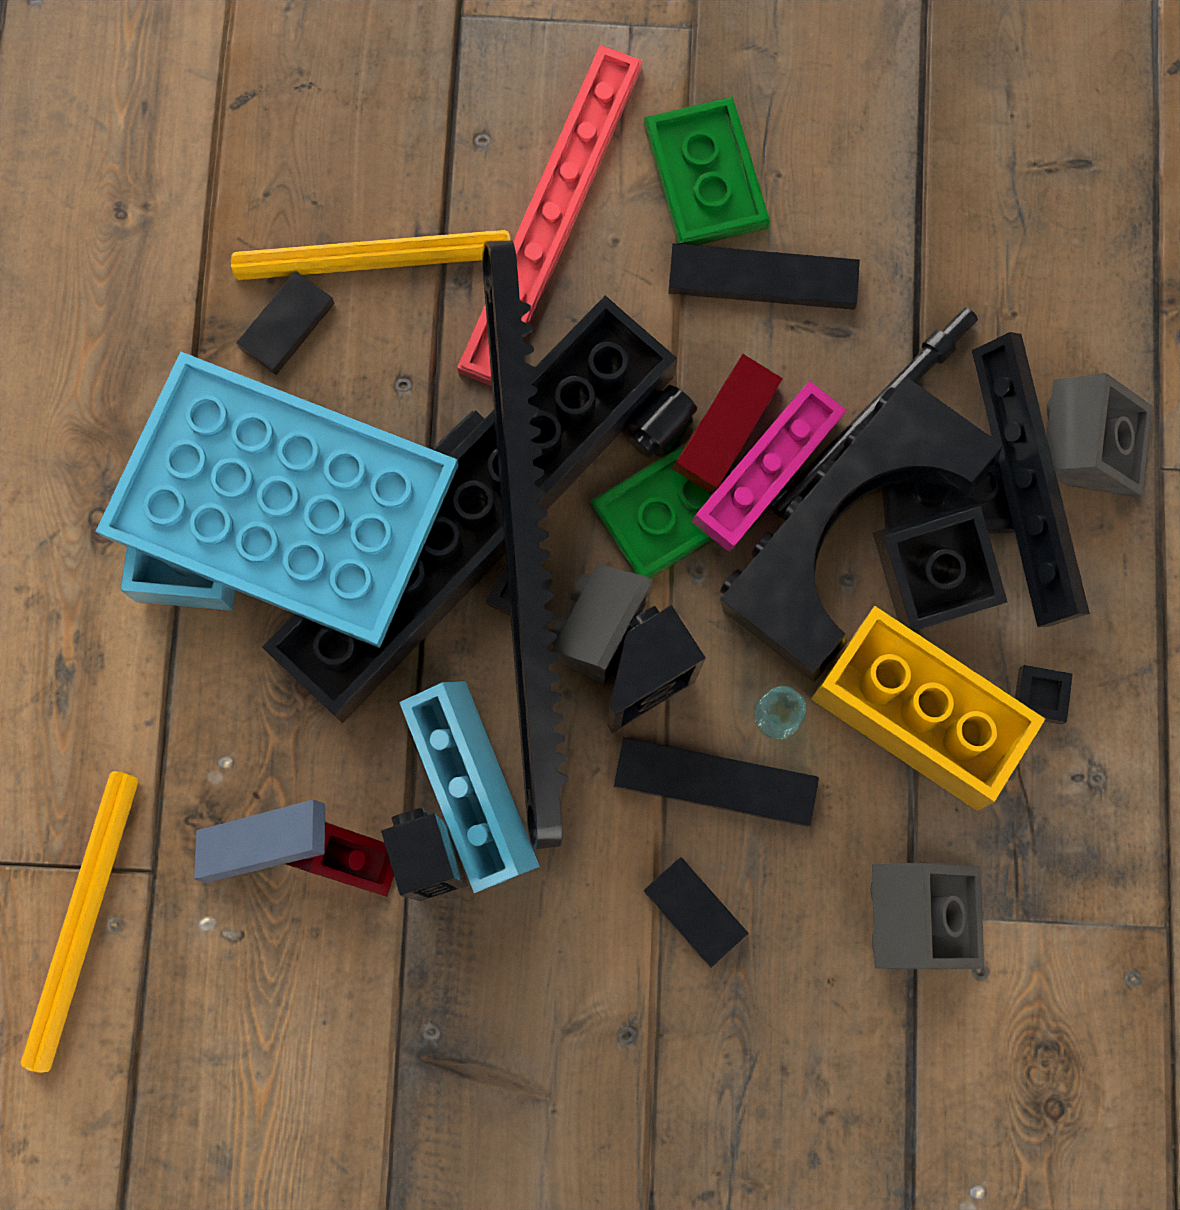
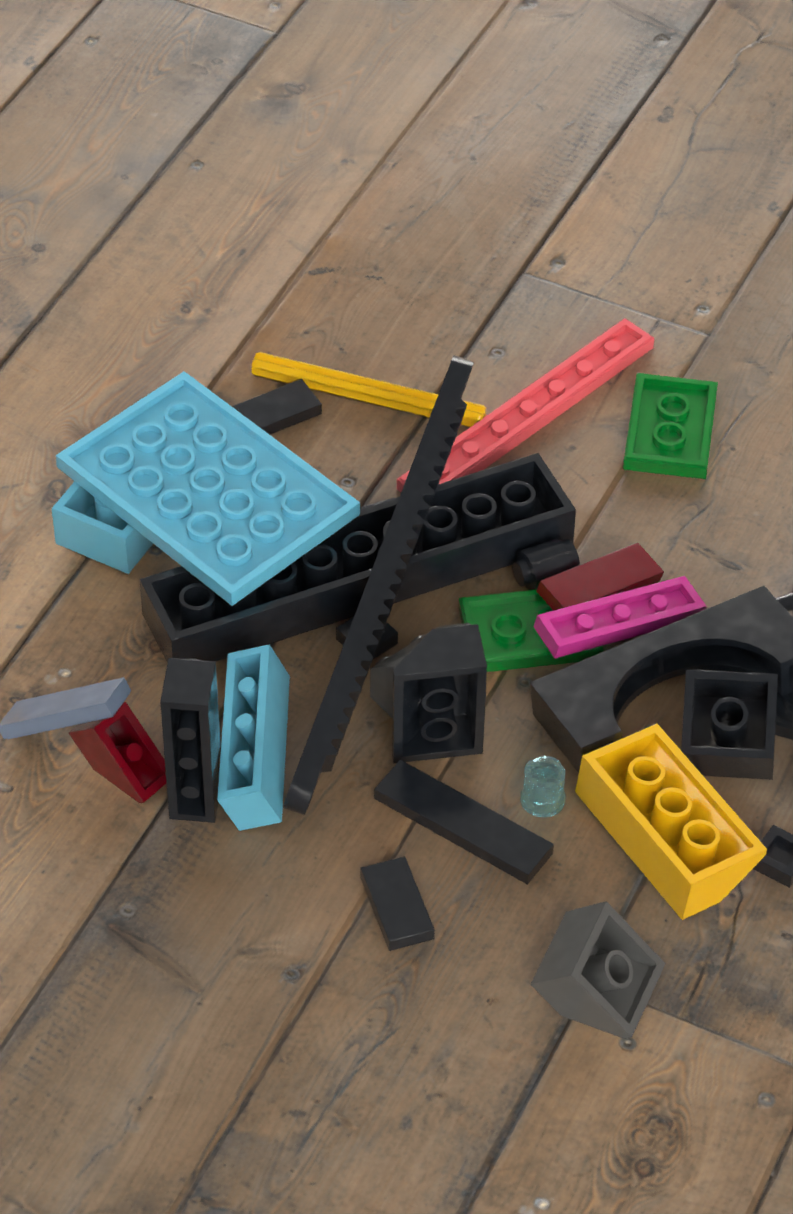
camera: 25 degrees right, 30 degrees down
(764, 276) = (684, 504): black tile -> none

